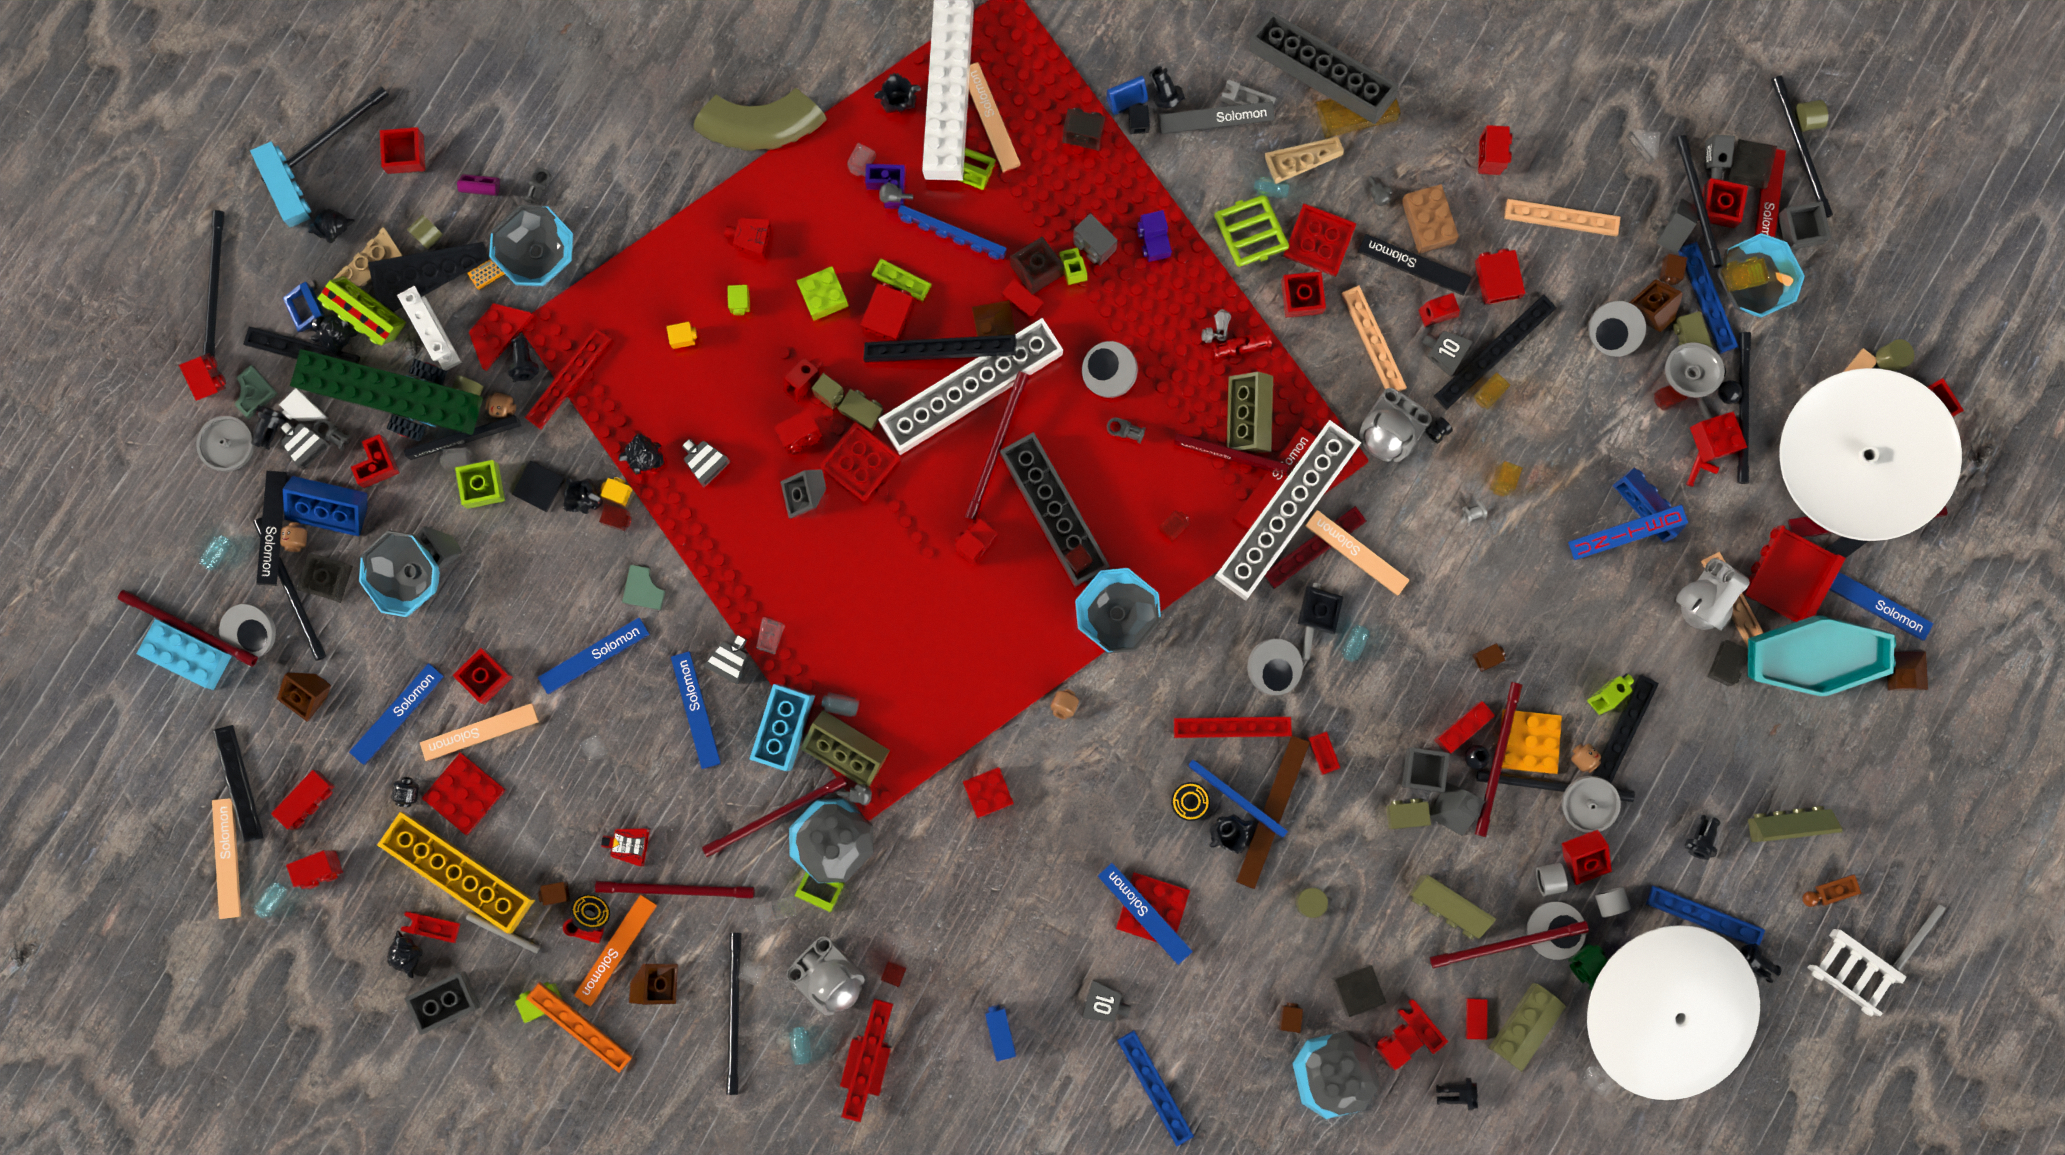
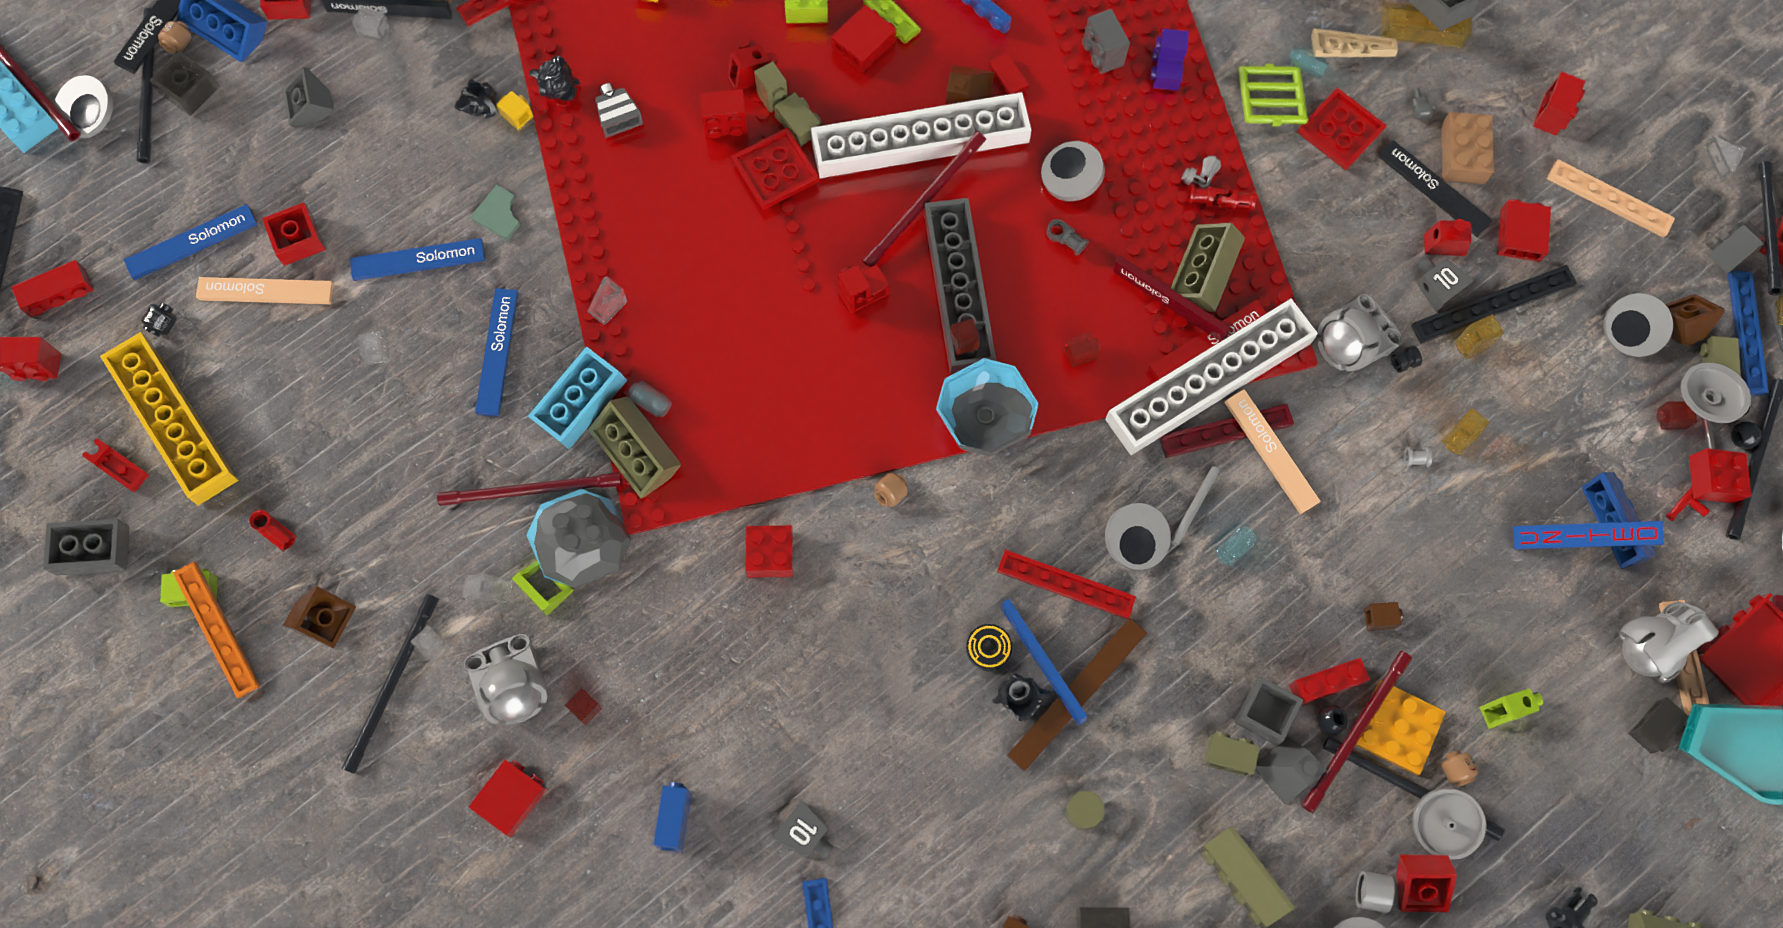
camera: 20 degrees right, 10 degrees down
(215, 552) = (92, 24): clear light blue head -> none
(303, 693) = (107, 185): reddish brown slope -> none
(398, 573) = (257, 100): dark grey rock -> none
(404, 954) = (73, 482): black hair -> none
(463, 794) = (218, 345): red plate -> none
(480, 484) = (381, 52): lime brick -> none
(511, 937) = (193, 508): light grey bar -> none
(538, 486) = (439, 79): black tile -> none
(554, 893) = (261, 480): reddish brown brick -> none
(594, 904) = (294, 505): black tile -> none
(615, 518) = (502, 133): clear red brick -> none
(615, 950) = (296, 566): orange tile -> none
(628, 845) = (362, 460): torso -> none
(729, 660) = (554, 312): torso -> none
(737, 892) = (325, 498): dark red piece -> none
(800, 1046) = (446, 746): clear light blue head -> none
(803, 491) = (704, 173): dark grey slope -> none
(859, 794) = (629, 499): dark grey piece -> none
(867, 1060) = (510, 789): red tile -> none
(940, 348) = (904, 86): black tile -> none
(1037, 265) = (1036, 45): clear smoke brick -> none
(1073, 266) = (1073, 61): lime brick -> none
(1145, 913) = (890, 749): blue tile -> none
(1164, 897) = (901, 750): red plate -> none
(1303, 294) = (1306, 172): red brick -> none
(1320, 610) = (1210, 496): black tile -> none
(1324, 753) = (1159, 651): red tile -> none
(1373, 339) = (1365, 243): light nougat tile -> none
(1625, 728) = (1517, 753): black tile -> none
(1673, 269) = (1719, 287): reddish brown brick -> none

